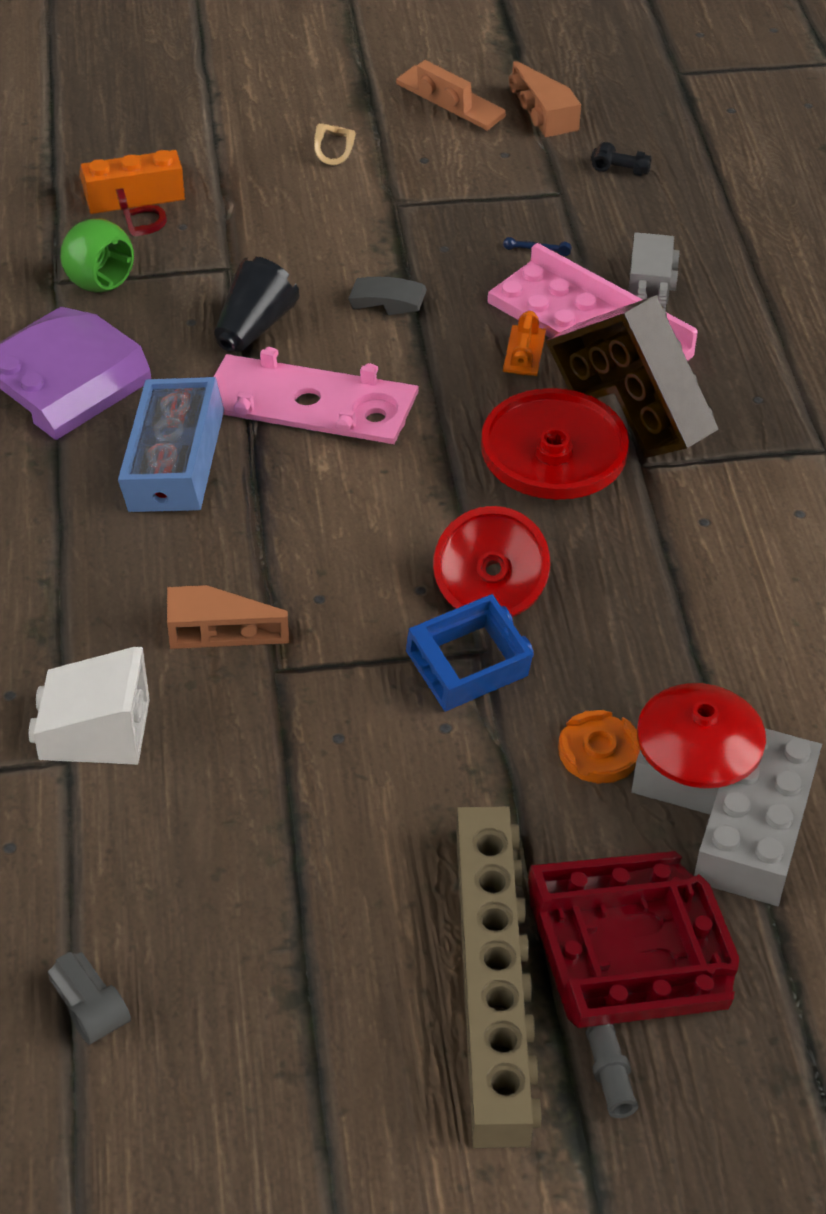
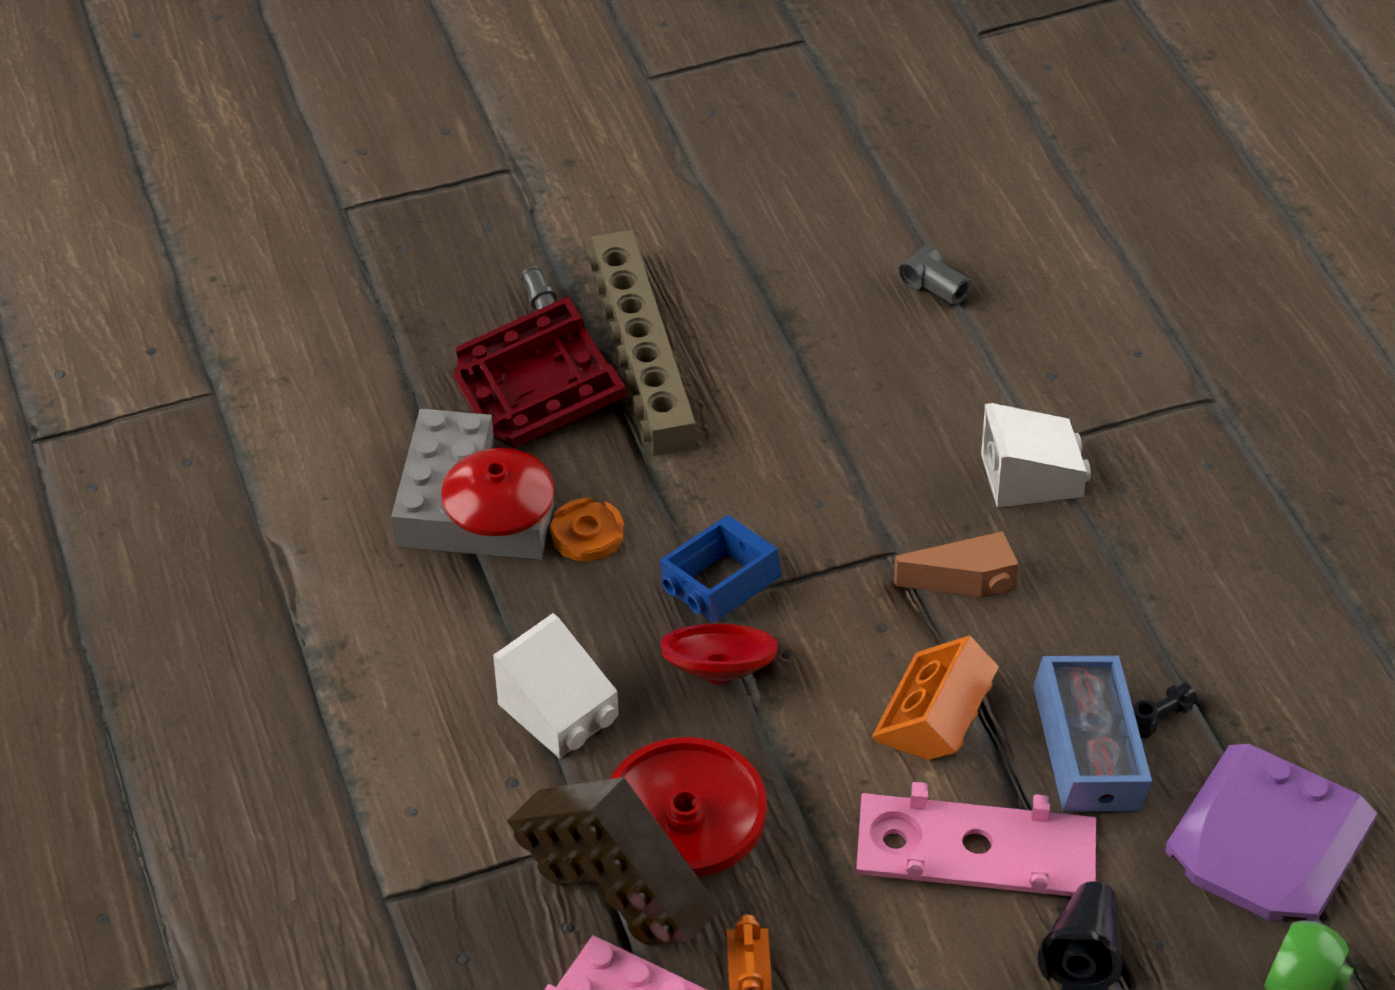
camera: 170 degrees right, 0 degrees up
(111, 463) = (1147, 713): none -> black bar
(298, 504) = (937, 699): none -> orange slope
(661, 562) = (554, 687): none -> white slope

